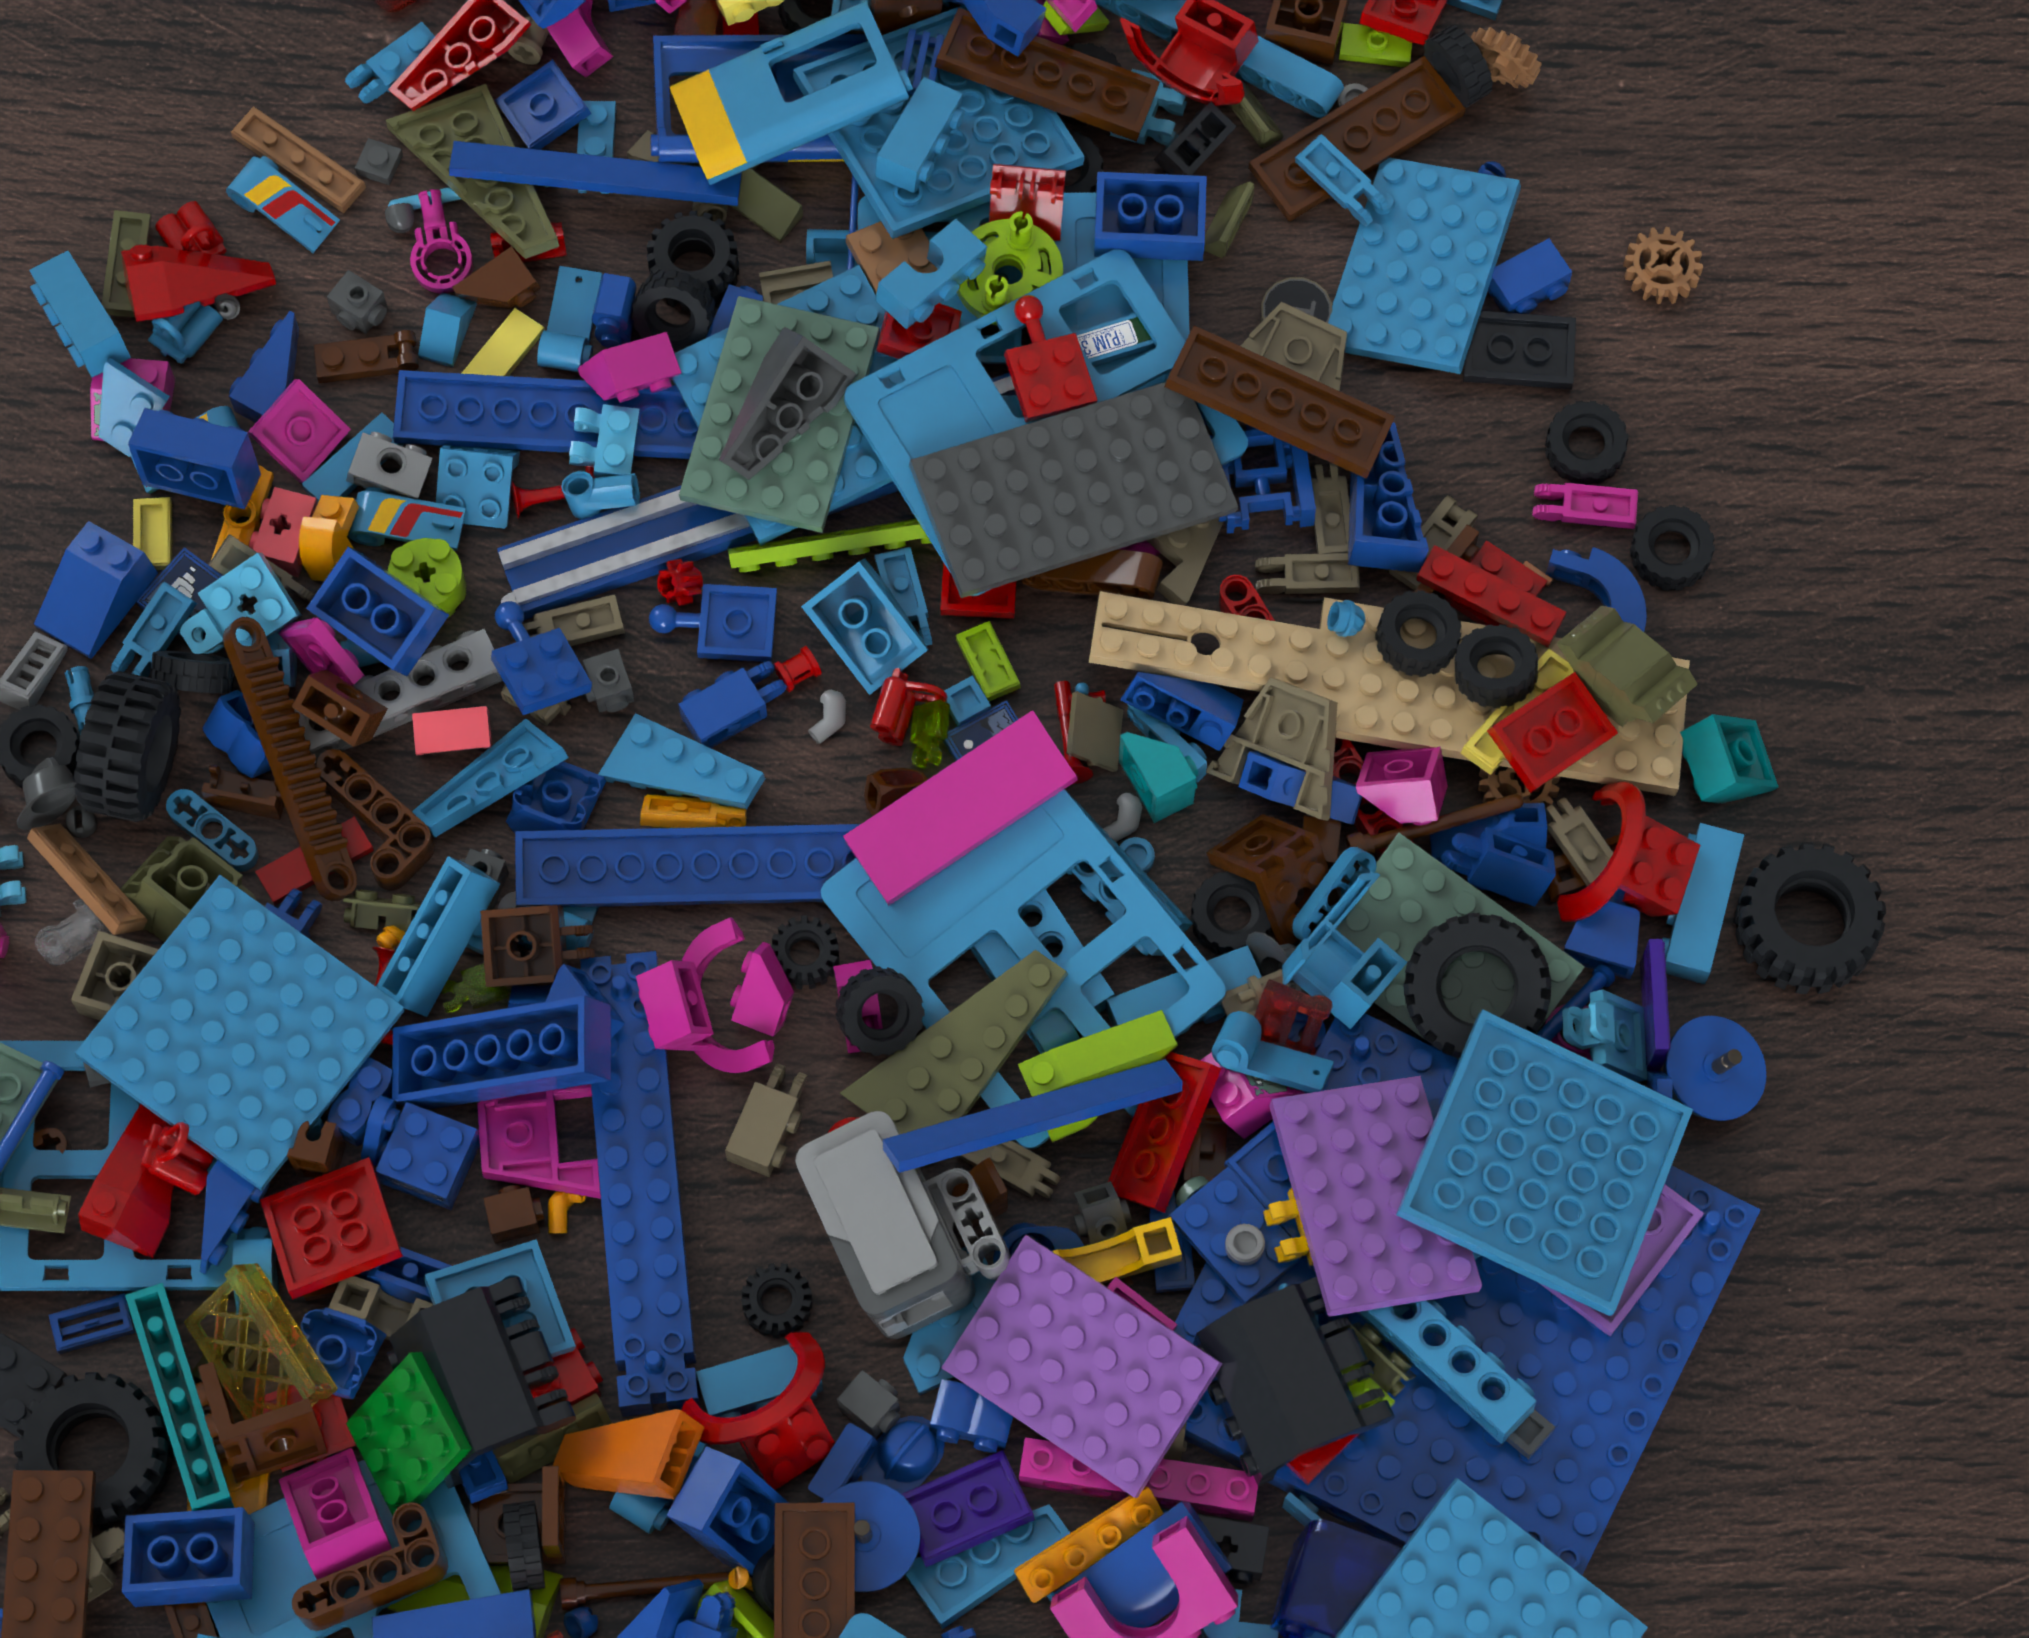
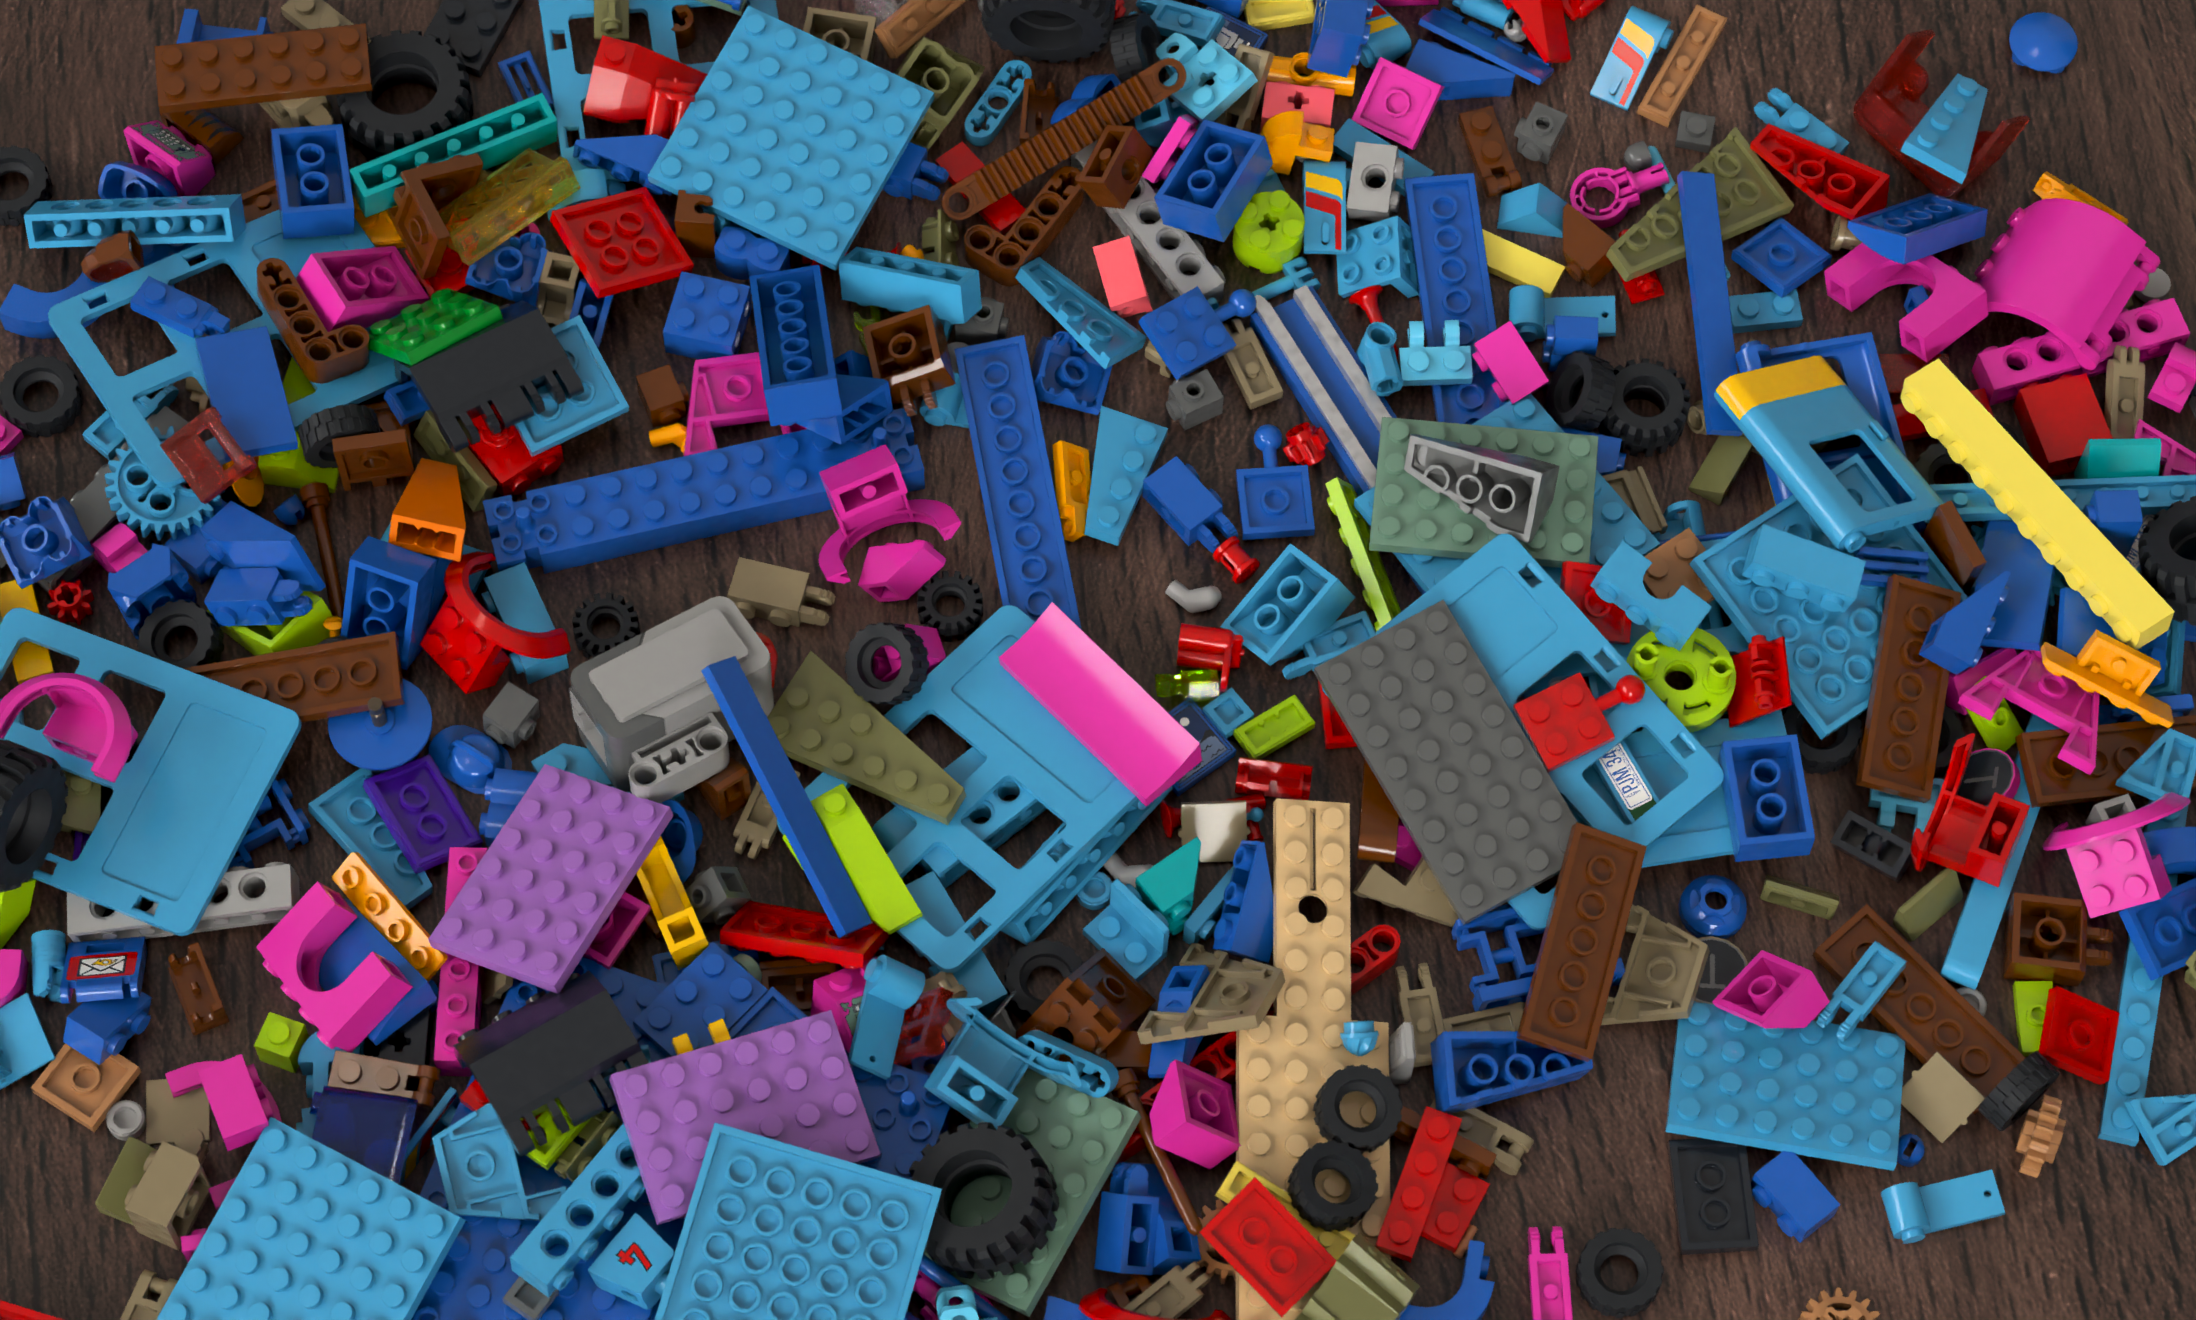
camera: 80 degrees right, 5 degrees down
(249, 330) = (1482, 42): none -> blue windscreen
(379, 1128) = (727, 267): blue plate -> none
(481, 570) = (1292, 280): none -> dark azure hinge
(844, 1461) = (454, 702): blue slope -> none
(889, 785) = (1130, 656): reddish brown rock -> none
(1043, 672) = (1273, 778): none -> red hinge
(1155, 29) = (1987, 773): none -> black tile
(1191, 825) = (1130, 931): none -> dark azure bracket
(1228, 313) = (1705, 921): none -> blue piece
(1244, 1244) = (685, 1008): light grey tile -> none
(1269, 1564) = (383, 1076): none -> plate
(1339, 255) = (1773, 993): none -> dark pink slope
(1356, 586) = (1402, 1054): none -> light grey slope
(1394, 1463) = (484, 1173): none -> dark azure wing
(1448, 136) = (1940, 1097): none -> dark tan piece
(1511, 1318) = (634, 1264): none -> dark azure torso
(1549, 158) = (1941, 1205): none -> dark azure door

